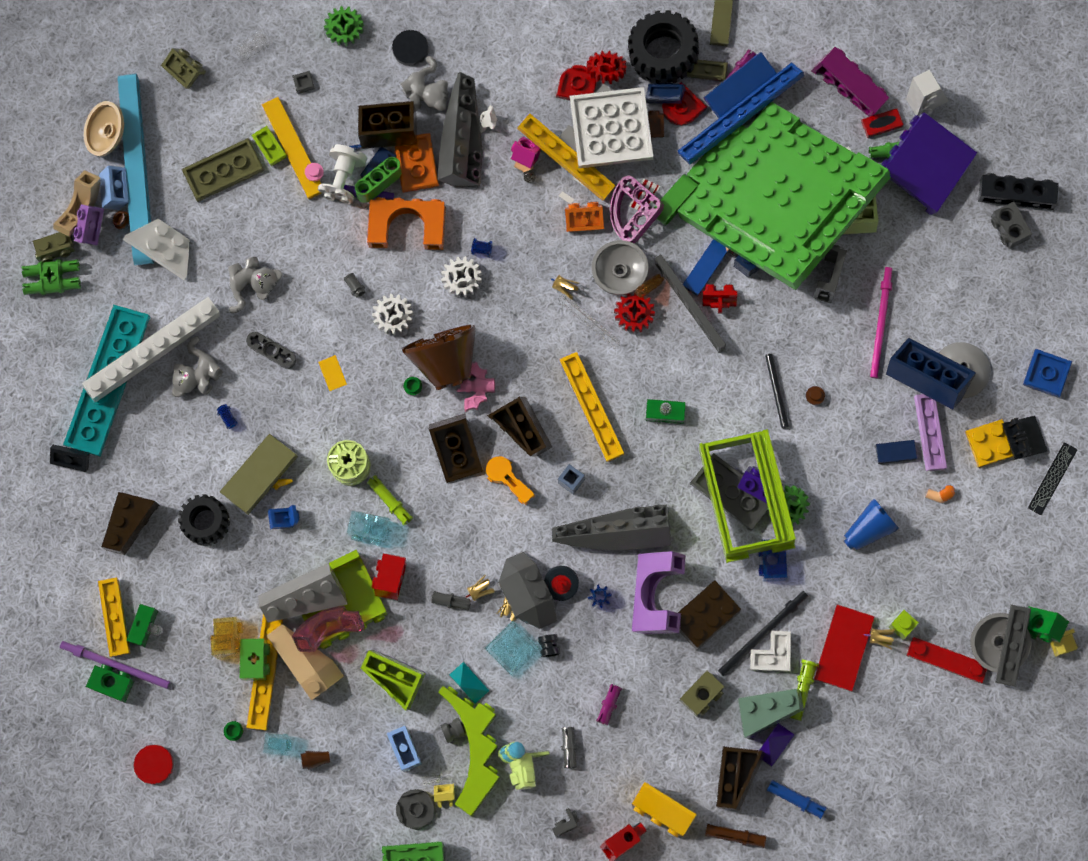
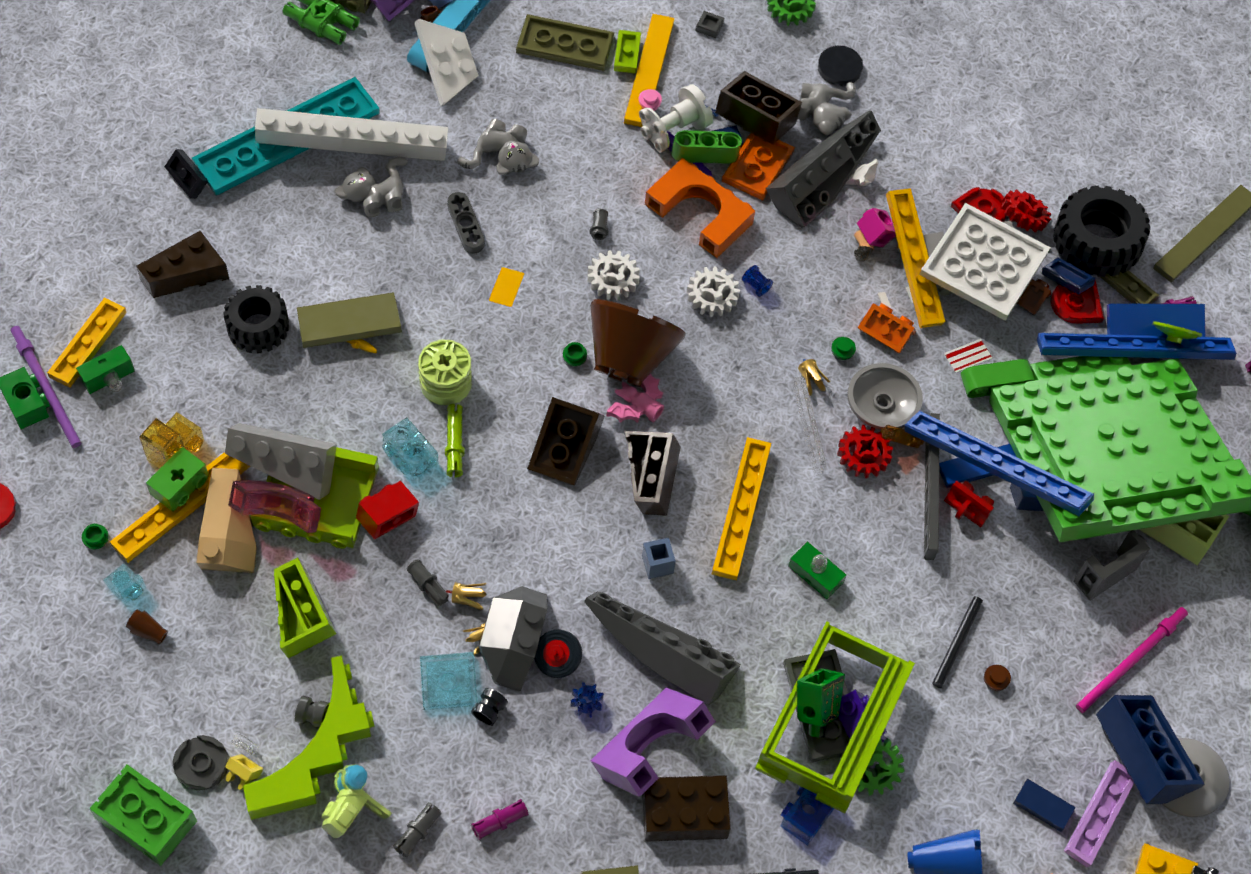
camera: 25 degrees right, 15 degrees down
(226, 415) = (369, 242): clear blue pin -> none
(283, 517) = (334, 376): blue bracket -> none
(404, 748) = (244, 688): light blue brick -> none
(469, 682) = (373, 679): teal slope -> none
(498, 469) = (593, 493): light orange piece -> none
(568, 252) = (843, 348): none -> green plate
(645, 210) = (958, 362): magenta beam -> none
(723, 265) = (1000, 463): none -> blue tile
(731, 493) = (819, 699): none -> green torso
(759, 87) = (1175, 333): none -> lime dish

